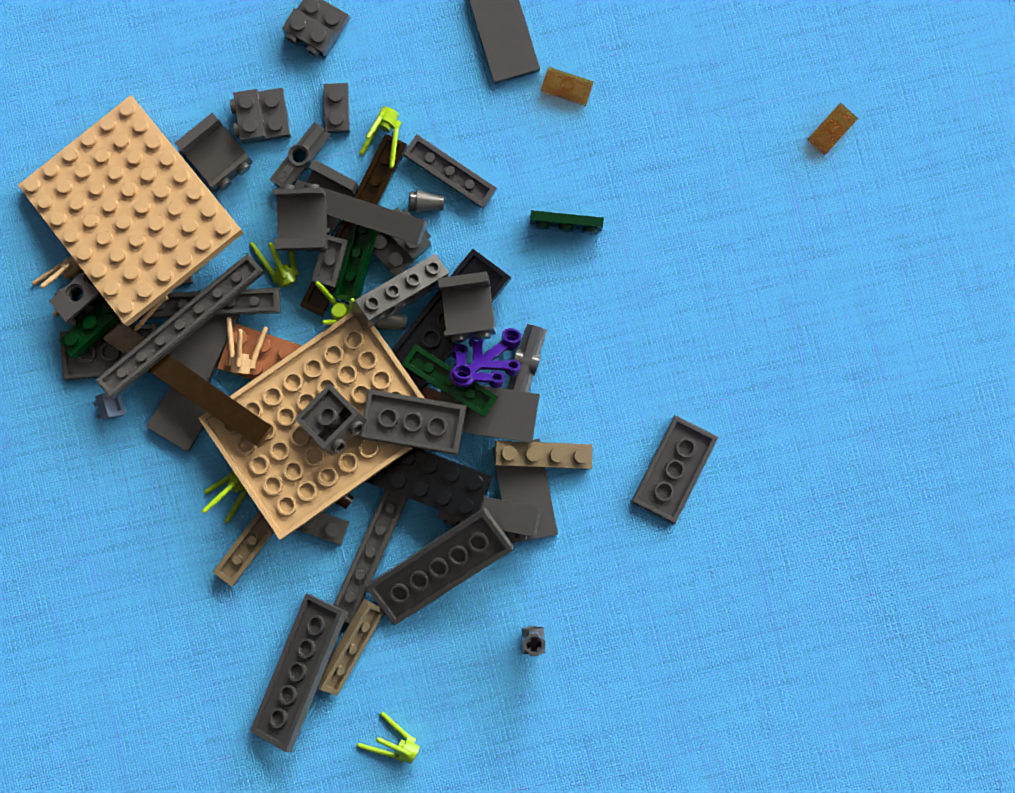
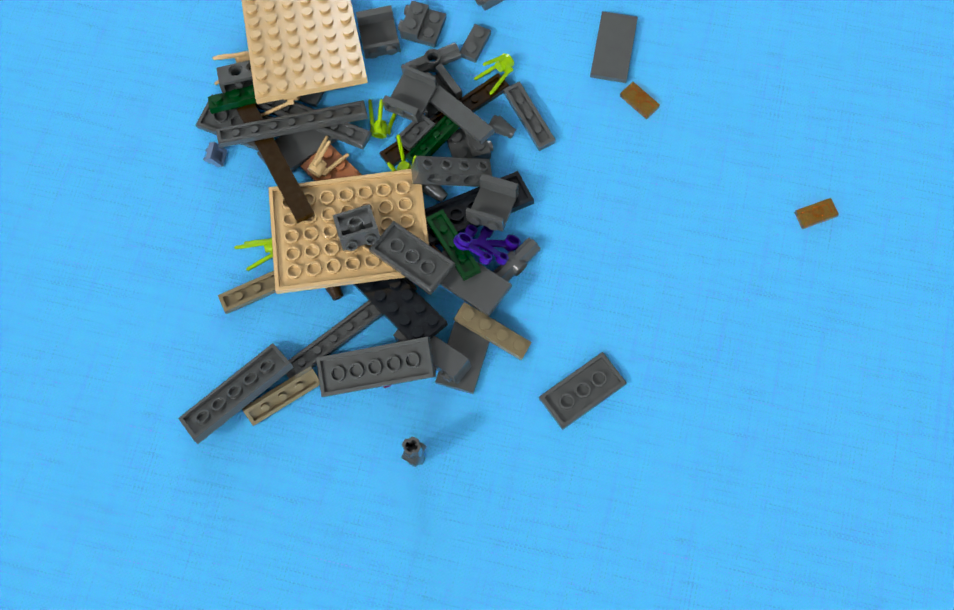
camera: 30 degrees right, 15 degrees down
(177, 420) = (254, 186): dark grey tile -> none
(326, 527) = (311, 305): dark grey plate -> none
(404, 751) = (279, 489): lime plant -> none
(566, 222) = (592, 184): dark green plate -> none

